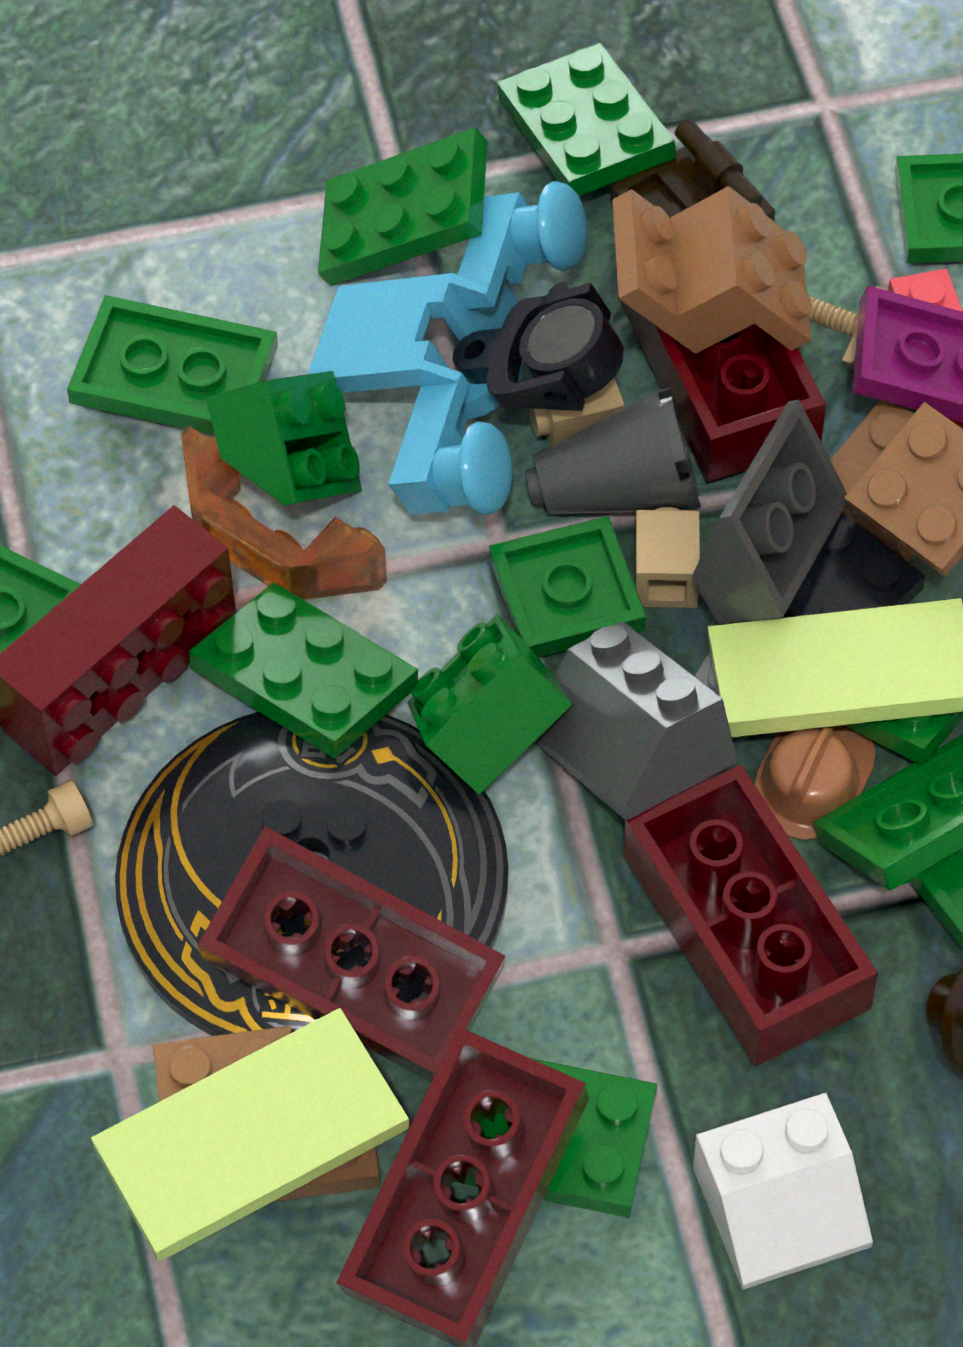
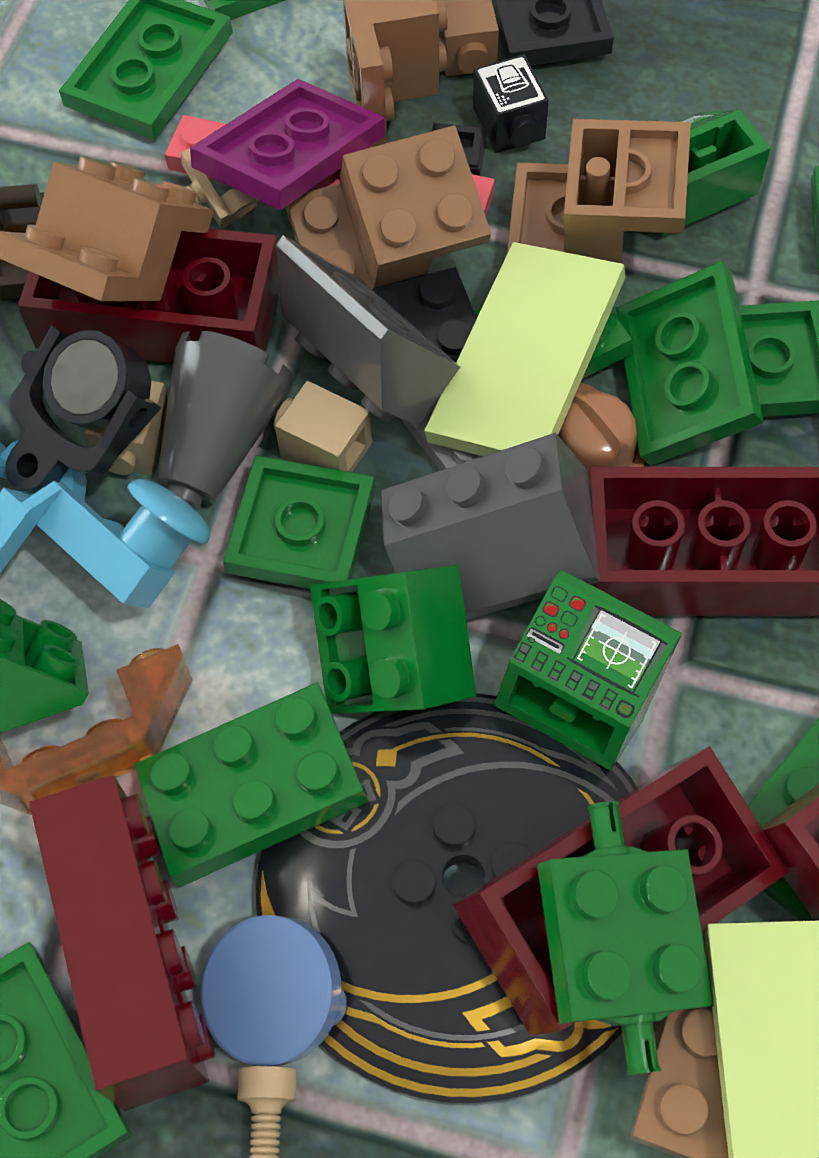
camera: 60 degrees left, 5 degrees up
(142, 769) = (271, 990): none -> medium blue tile
(294, 948) = (624, 936): none -> green plate
(543, 858) = (586, 669): none -> green slope

